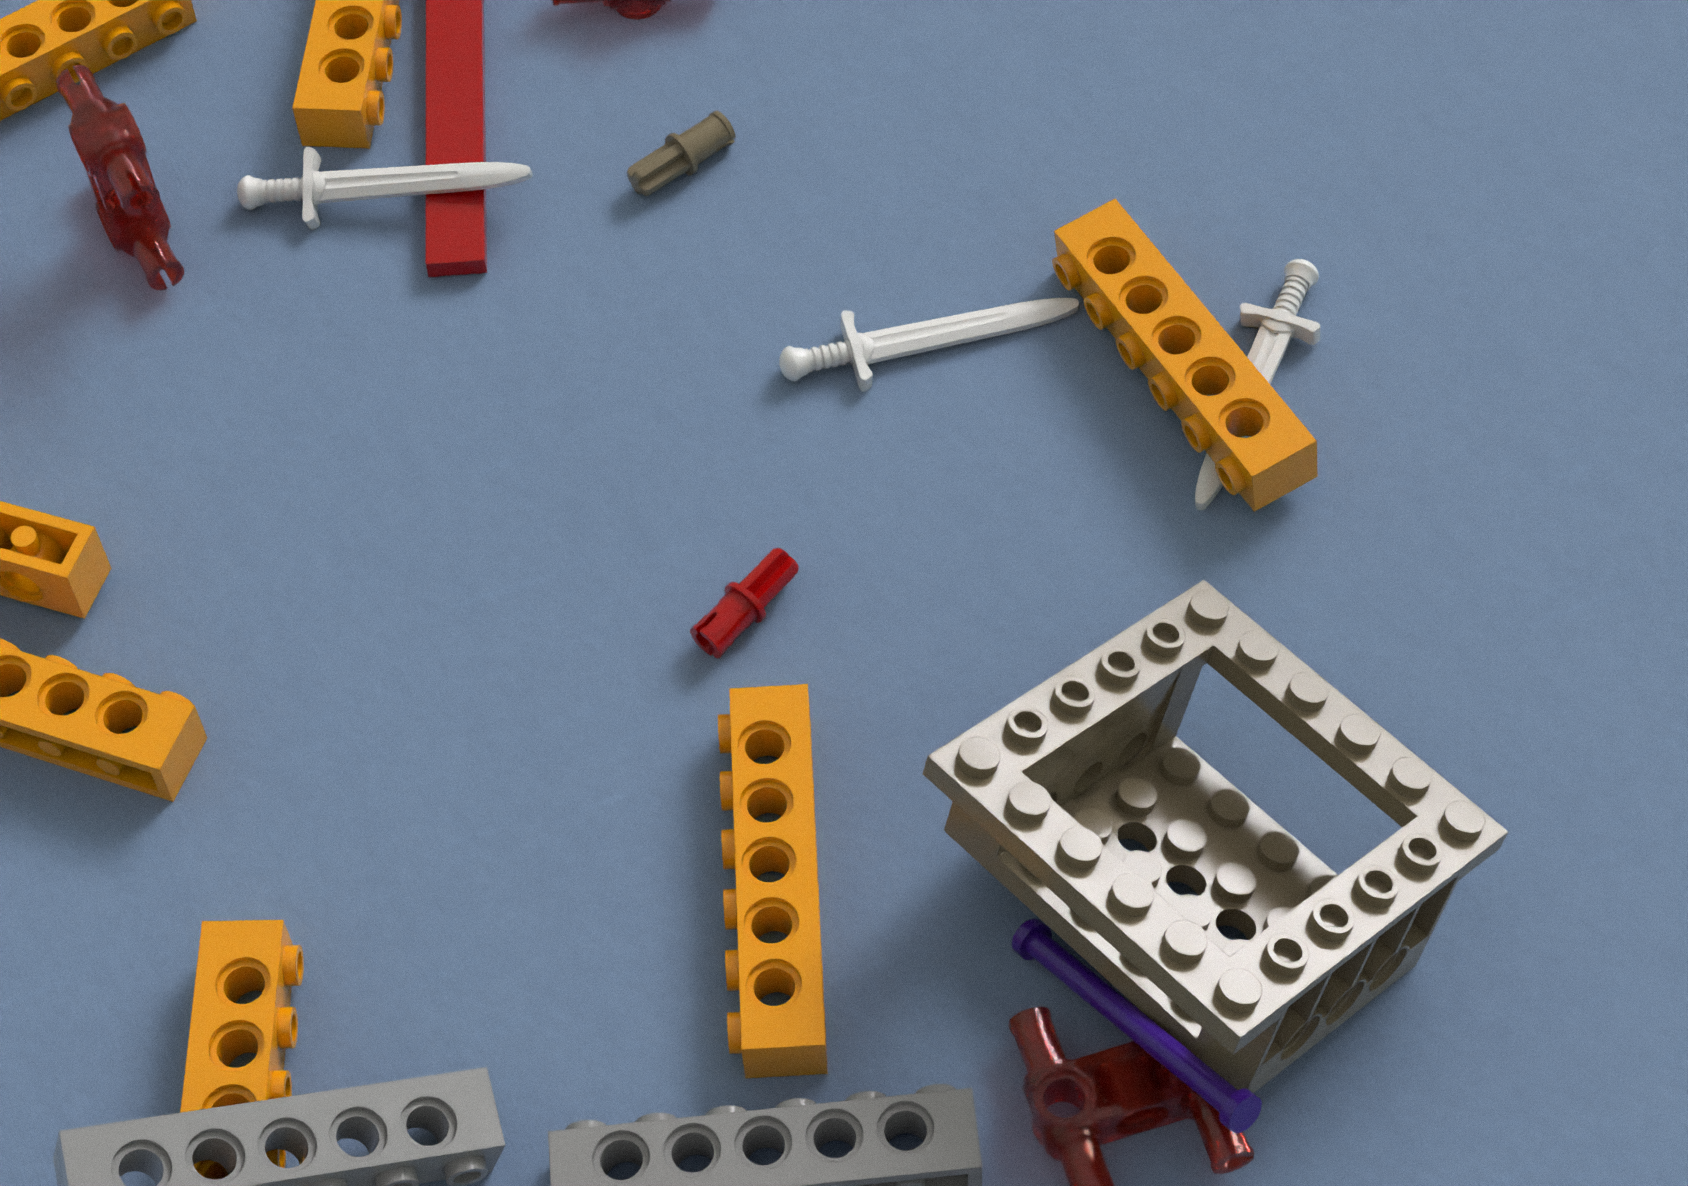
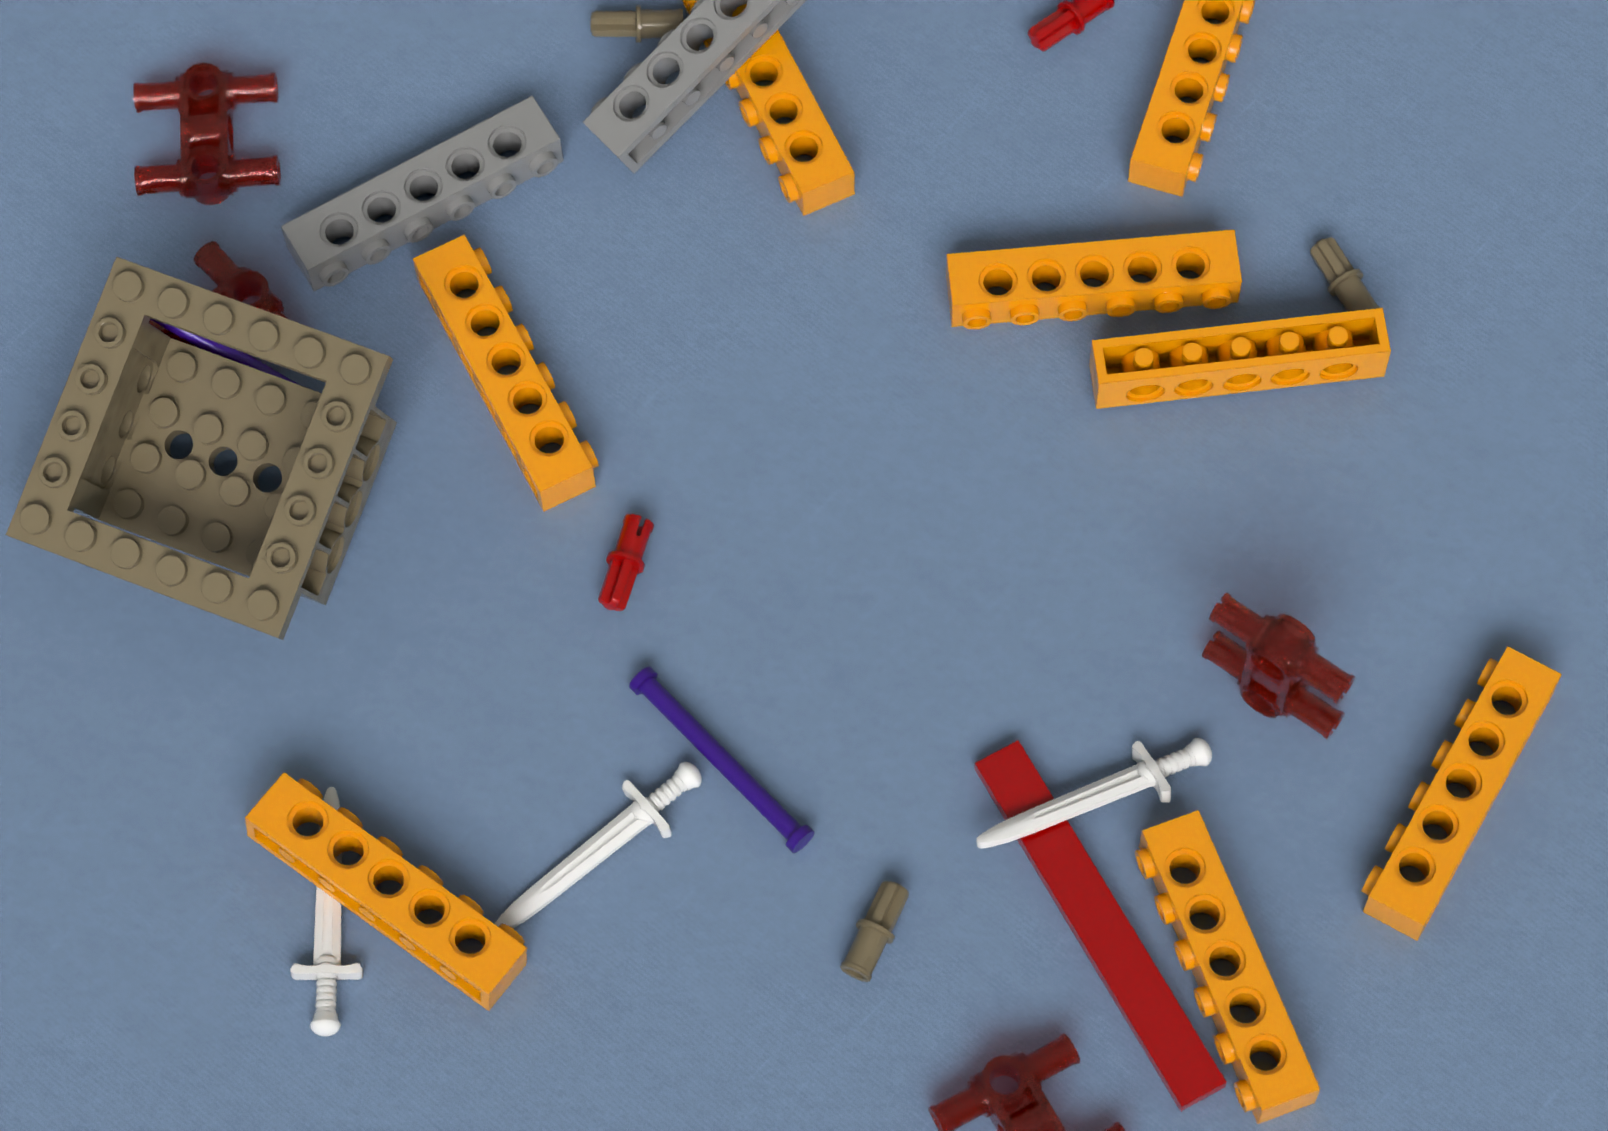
camera: 155 degrees right, 10 degrees up
(789, 470) = (795, 834): none -> dark purple bar

